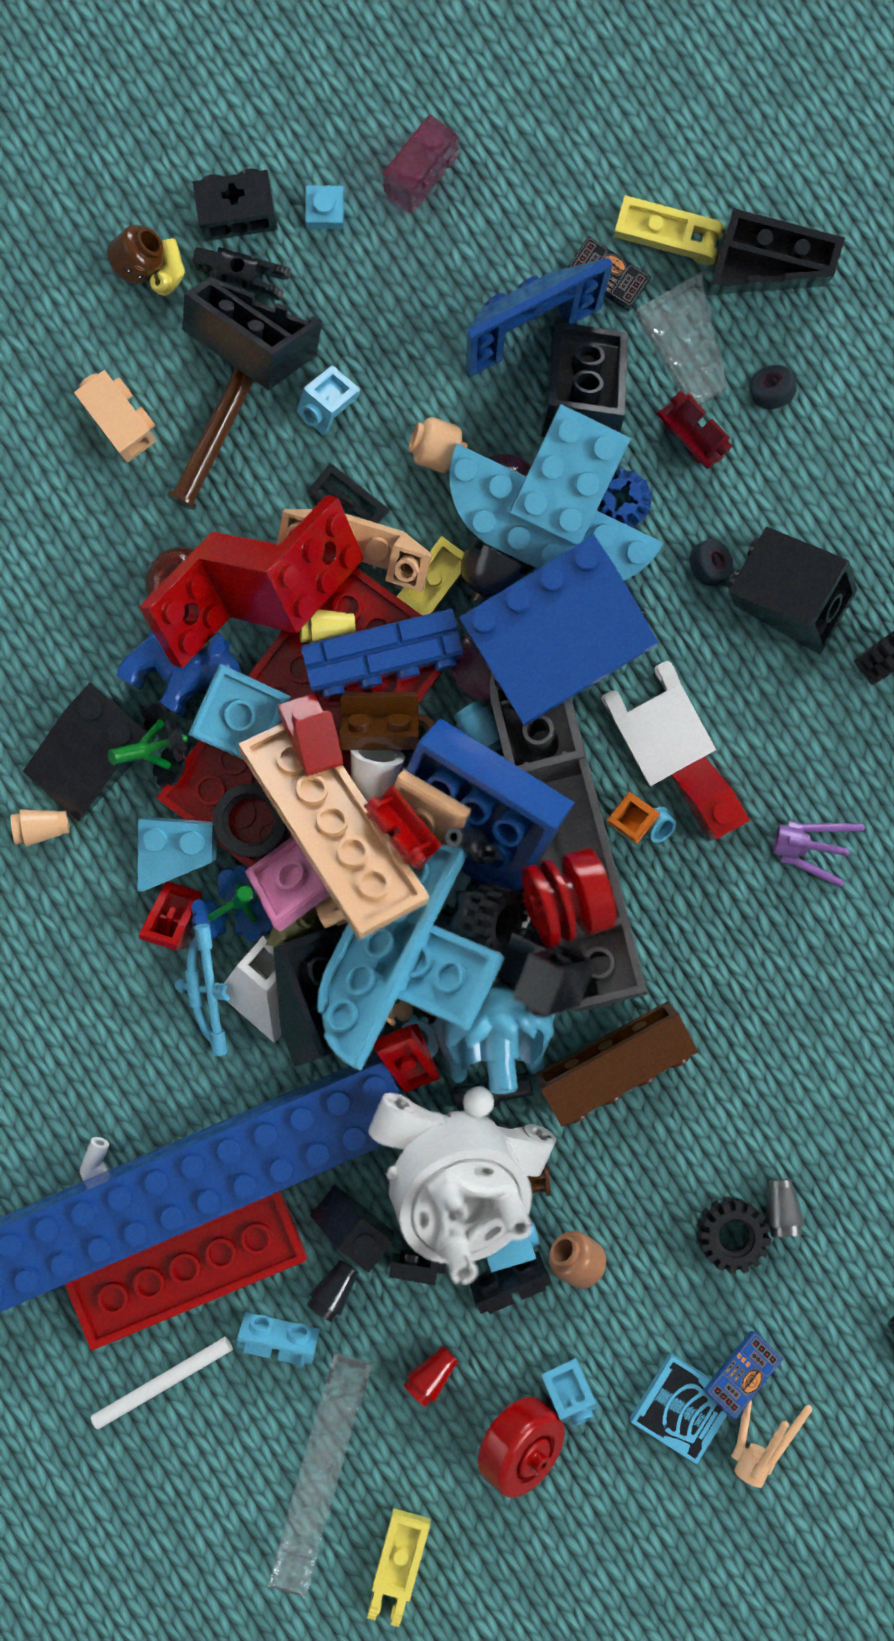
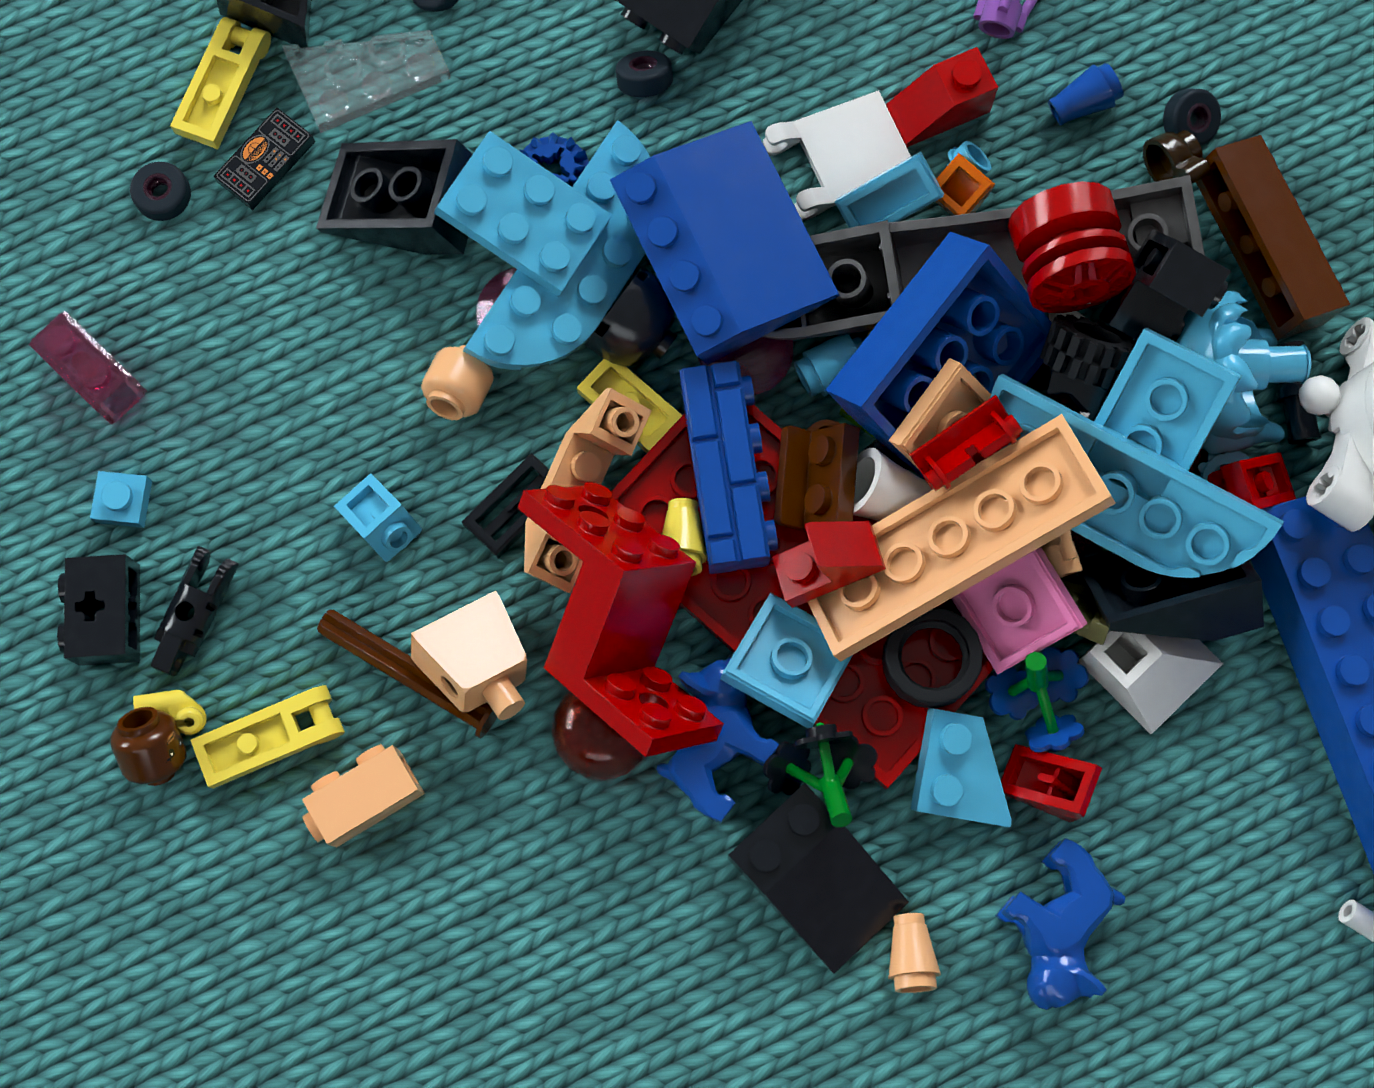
camera: 80 degrees left, 10 degrees down
(65, 931) = (1061, 928): none -> blue animal
(153, 339) = (265, 737): none -> light yellow plate
(215, 991) = (1147, 761): medium azure piece -> none
(221, 483) = (474, 657): none -> light nougat torso
(249, 334) = (278, 606): black wedge -> none
(473, 843) = (992, 362): black arm -> none
(570, 210) = (165, 206): none -> black wheel
(573, 290) = (298, 244): blue slope -> none
(619, 762) = (891, 194): none -> medium azure tile
(676, 988) = (1175, 156): none -> dark brown piece
(706, 443) = (498, 63): dark red hinge -> none
(721, 990) = (1205, 107): none -> black wheel
(727, 916) = (1087, 94): none -> blue cone

